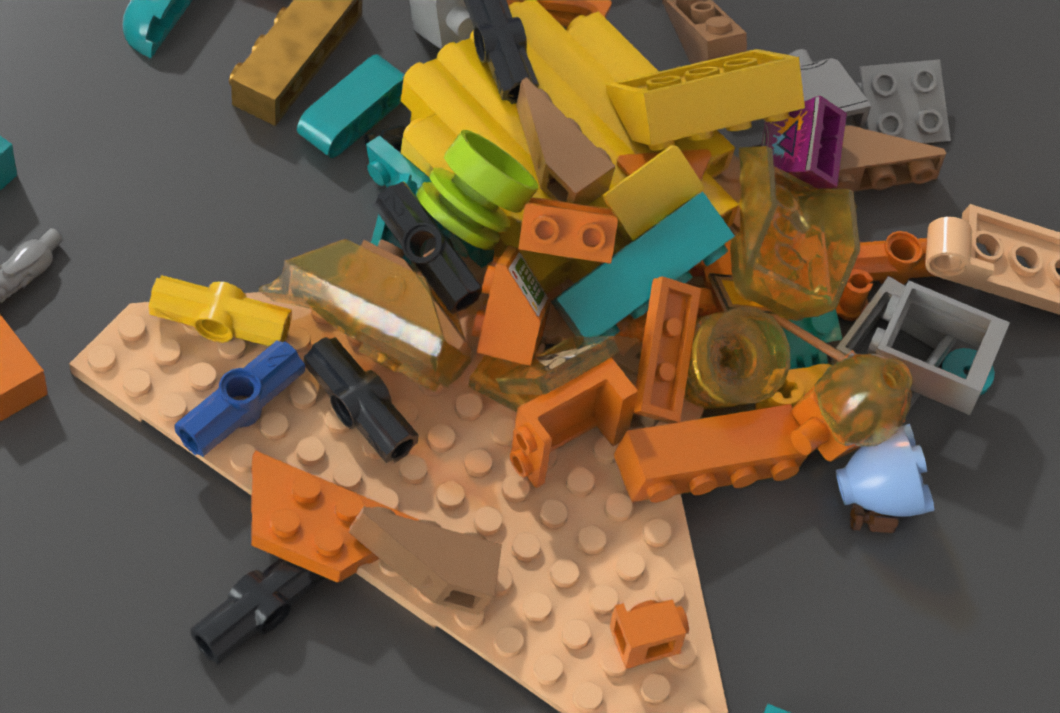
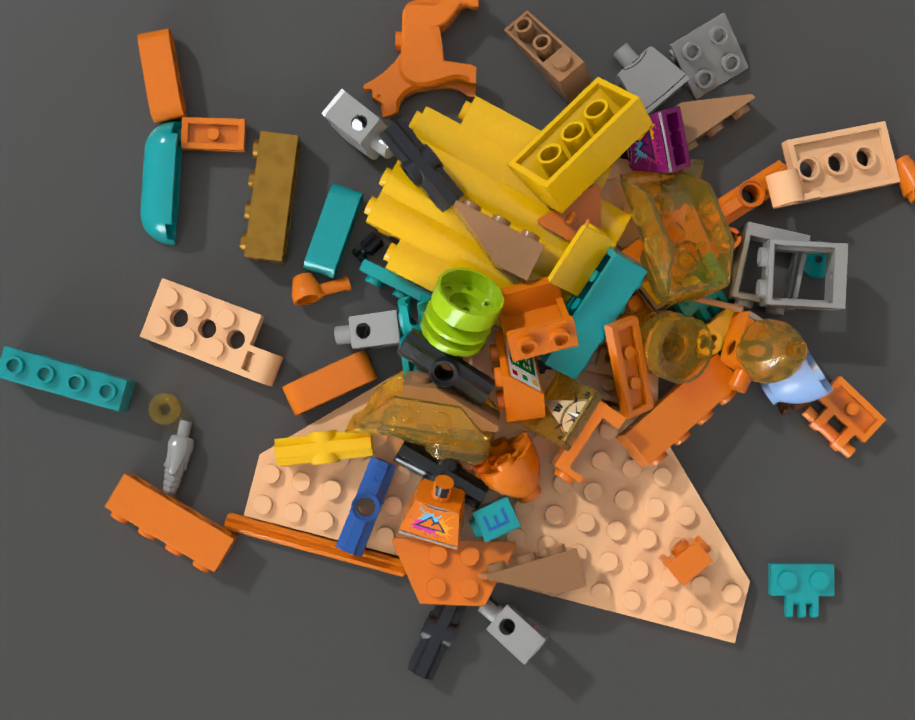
camera: 10 degrees left, 30 degrees up
(34, 201) = (155, 405): none -> clear yellow plate
(147, 438) = (311, 543): none -> orange axle
(169, 195) = (216, 350): none -> light nougat hinge
(252, 256) = (330, 382): none -> orange beam
(289, 157) = (308, 290): none -> orange bar
(330, 428) = (435, 512): none -> orange torso
(343, 210) = (383, 330): none -> light grey torso
(366, 624) = (526, 637): none -> light grey torso
(405, 478) = (494, 519): none -> teal brick
(457, 424) = (512, 468): none -> orange piece
(948, 551) = (851, 410): none -> orange plate

